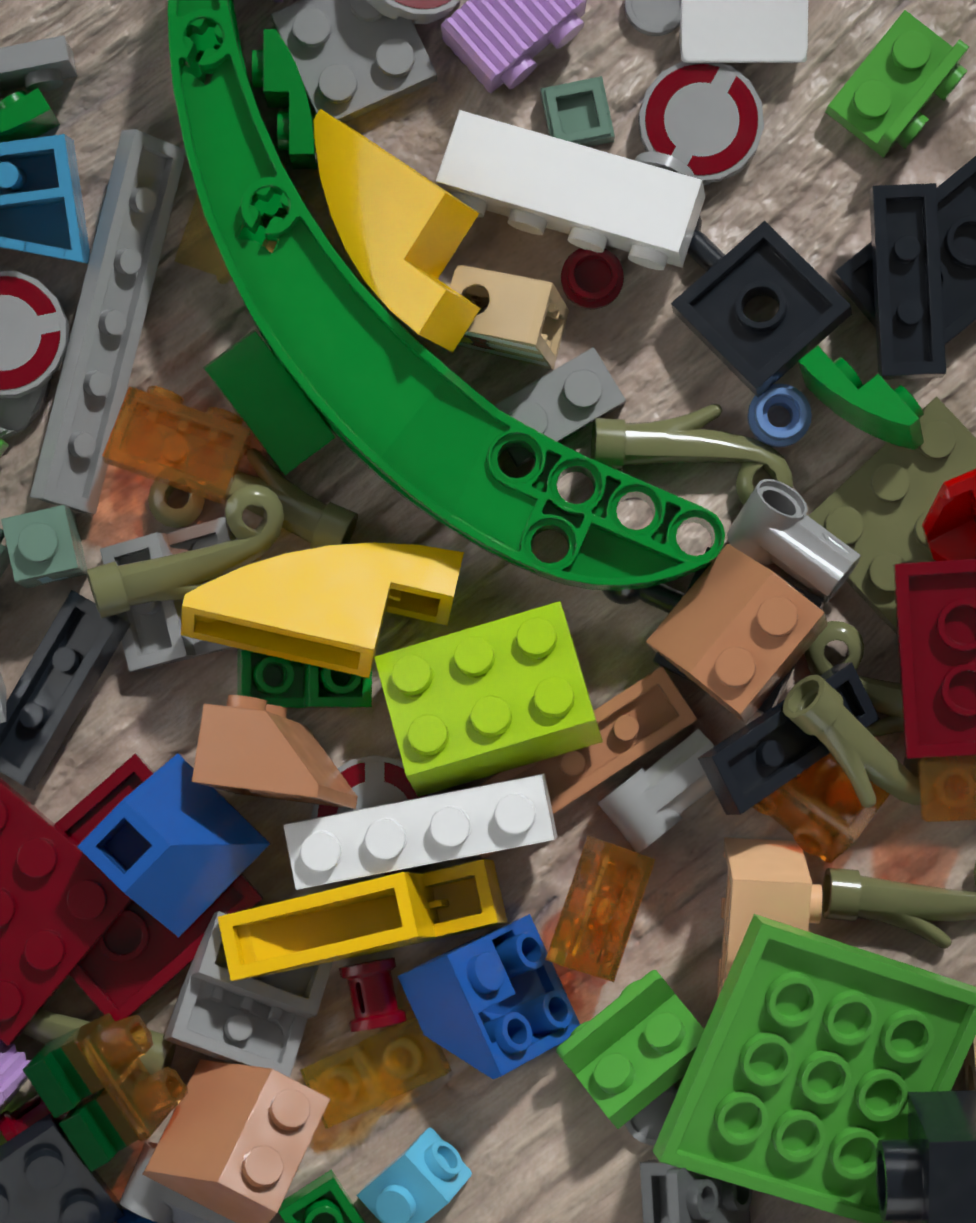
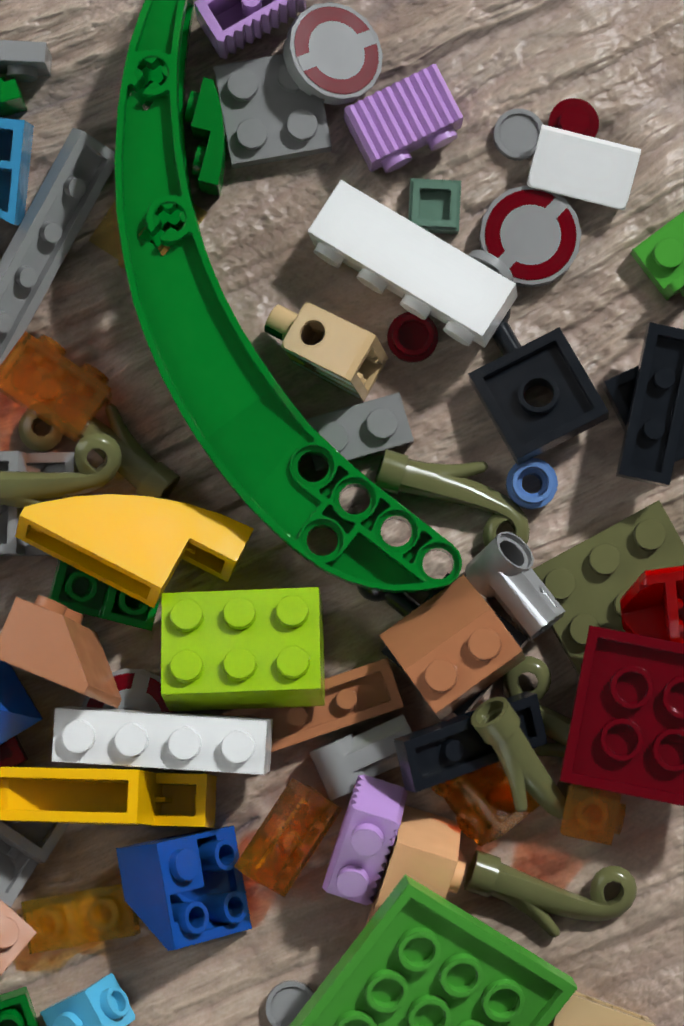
camera: 10 degrees right, 0 degrees up
(269, 402) = (132, 371): green slope -> none
(372, 994) = (93, 857): dark red bush -> none
(395, 230) = (265, 261): yellow slope -> none
(633, 1048) = (286, 953): bright green bracket -> none
(693, 888) = (365, 839): none -> lavender brick
(869, 407) = (603, 495): green slope -> none

